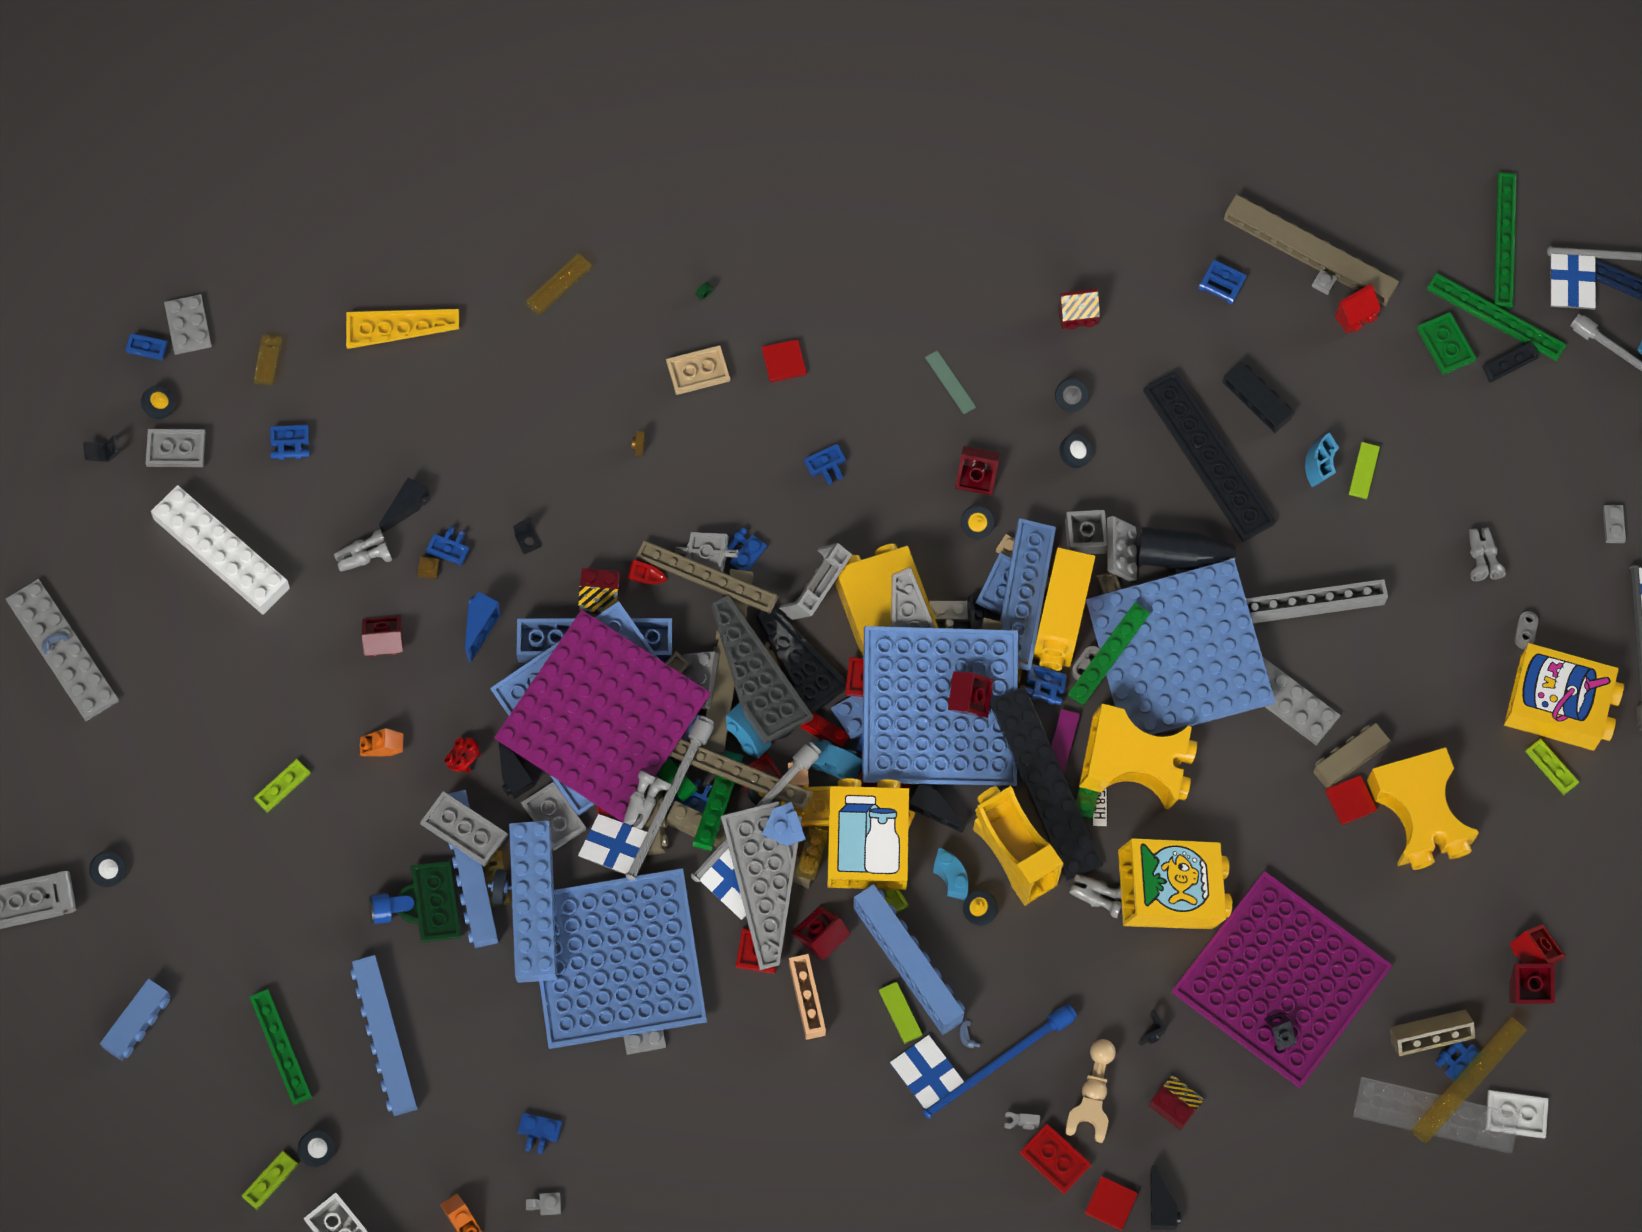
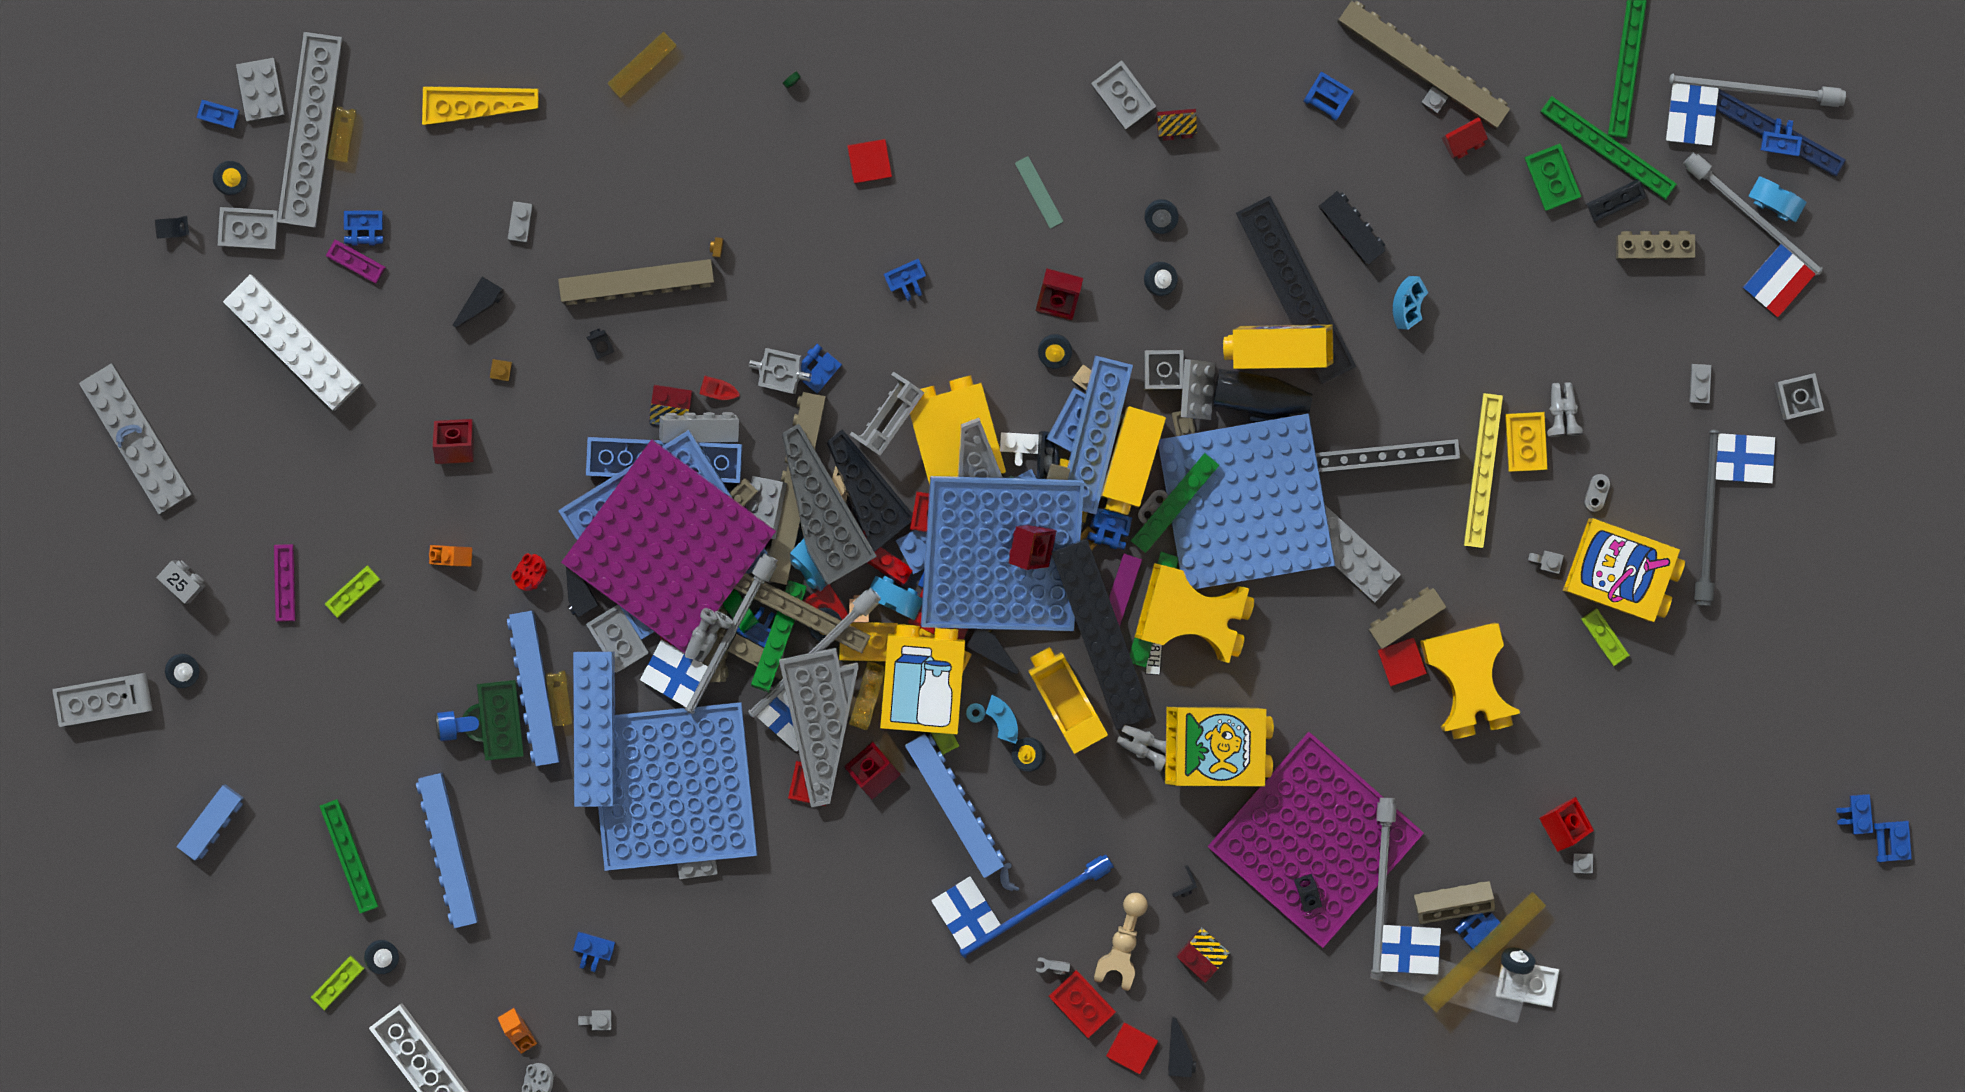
camera: 10 degrees right, 20 degrees up
(107, 779) = (181, 581): none -> light grey brick
(212, 780) = (284, 582): none -> magenta tile
(236, 357) = (309, 129): none -> light grey plate
(282, 474) = (355, 261): none -> magenta tile
(355, 554) = (430, 353): light grey piece -> none
(444, 431) = (520, 221): none -> light grey plate
(447, 549) = (520, 352): blue hinge -> none
(464, 829) = (529, 653): light grey plate -> none
(481, 618) = (549, 436): blue slope -> none
(499, 886) = (562, 713): black wheel -> none
(560, 477) = (636, 281): none -> dark tan brick
(635, 605) = (703, 427): none -> light grey brick
(698, 370) = (781, 168): tan plate -> none
(707, 576) = (779, 399): dark tan tile -> none
(784, 826) = (840, 674): medium blue plate -> none
(807, 996) = (855, 835): light nougat brick -> none
(900, 1012) = (944, 852): lime tile -> none
(923, 865) = (980, 717): none -> medium azure plate
(1025, 290) = (1123, 95): none -> light grey plate
(1200, 495) = (1280, 346): none -> yellow brick
(1364, 470) = (1452, 312): lime tile -> none
(1378, 1079) = (1399, 947): none -> flag
(1411, 614) = (1483, 470): none -> light yellow plate
(1450, 584) = (1526, 441): none -> yellow plate
(1487, 696) = (1549, 561): none -> light grey plate
(1505, 1088) = (1518, 960): none -> black wheel
(1532, 984) = (1556, 863): dark red slope -> none
(1553, 399) = (1655, 246): none -> dark tan brick
(1562, 989) = (1582, 863): none -> light grey plate

